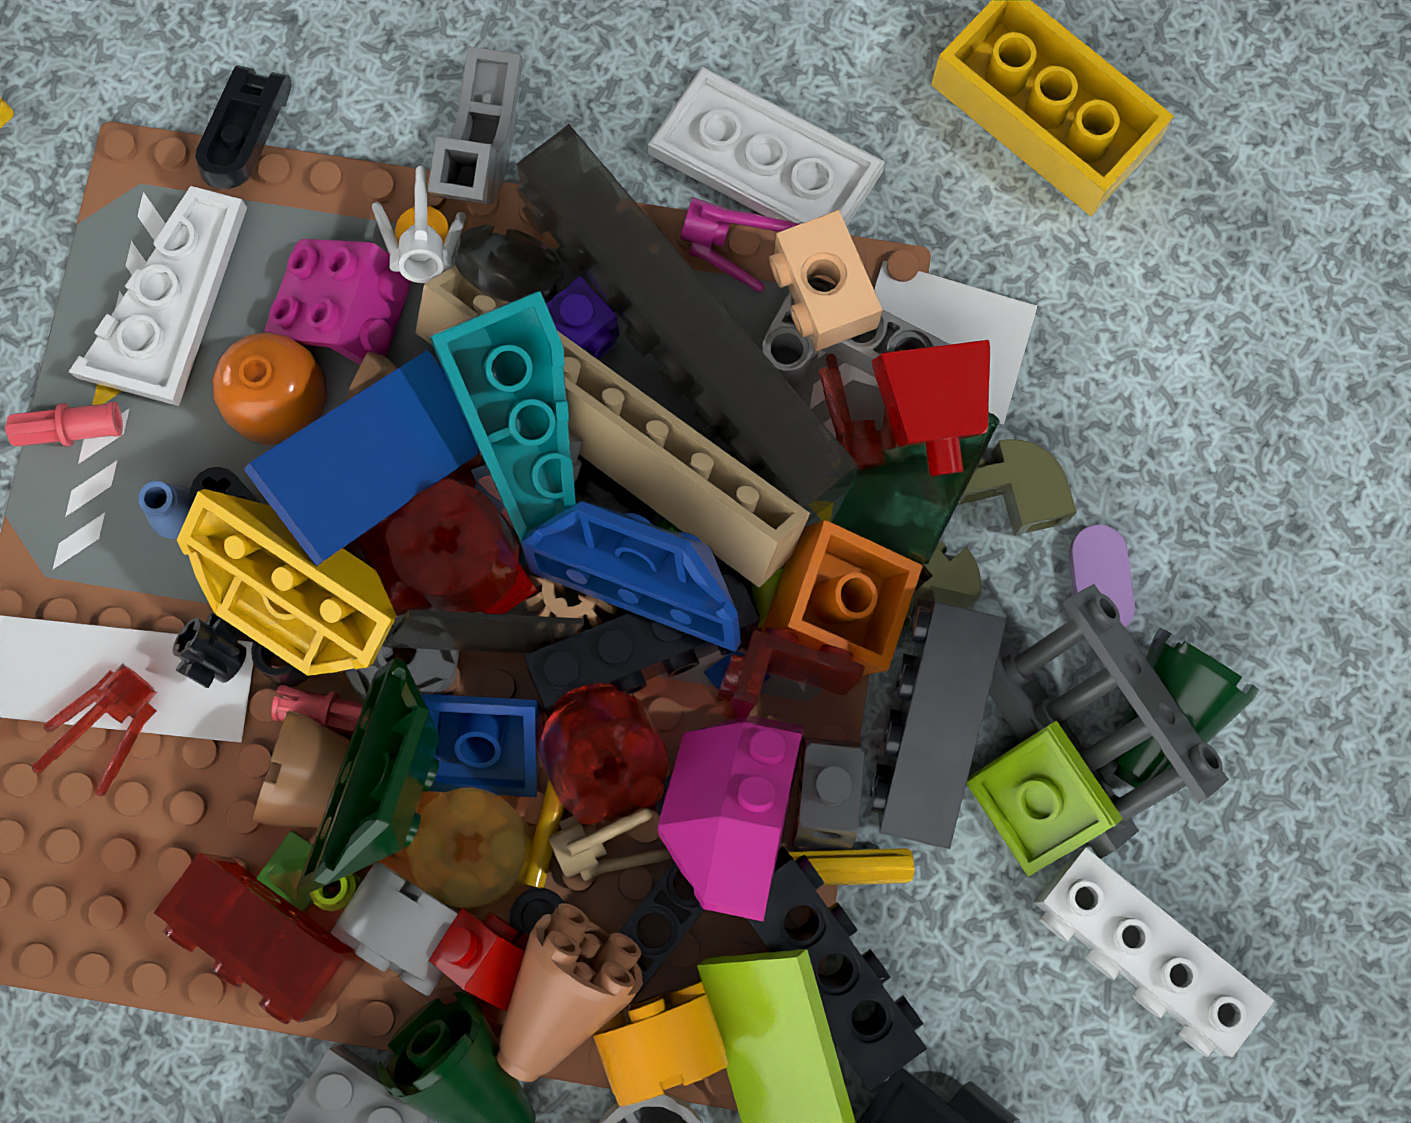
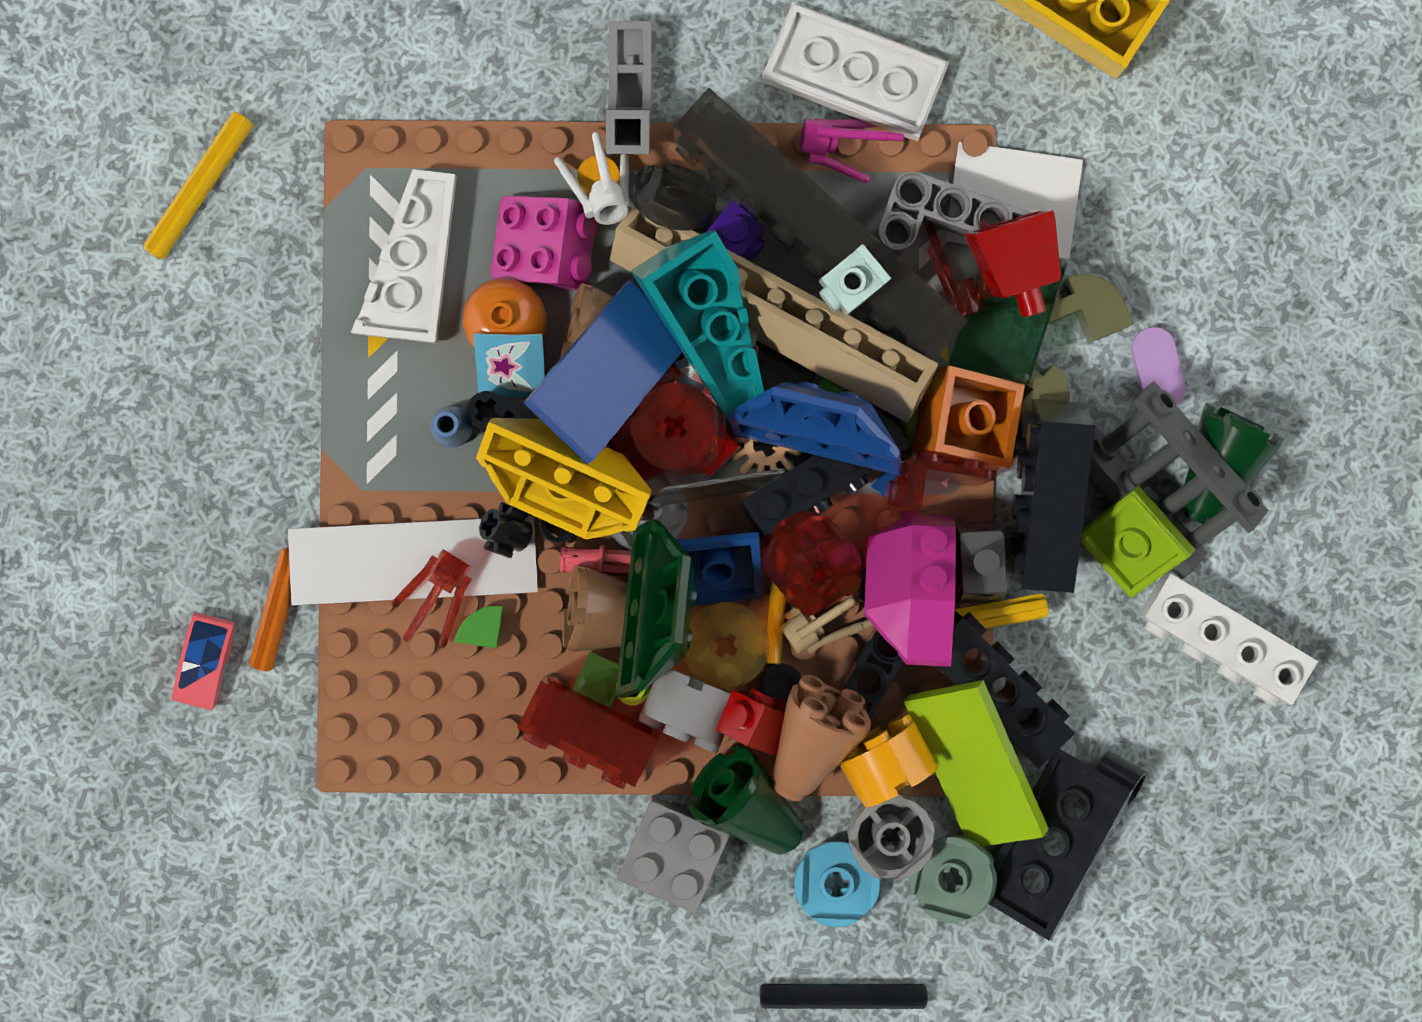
camera: 10 degrees left, 10 degrees up
(64, 424) = (353, 373): coral axle -> none
(156, 776) = (481, 627): none -> bright green tile
(240, 126) = (440, 112): black plate -> none
(252, 427) = (509, 363): none -> medium azure sticker
(705, 408) = (871, 278): none -> light aqua brick
(825, 249) = (921, 152): light nougat brick -> none

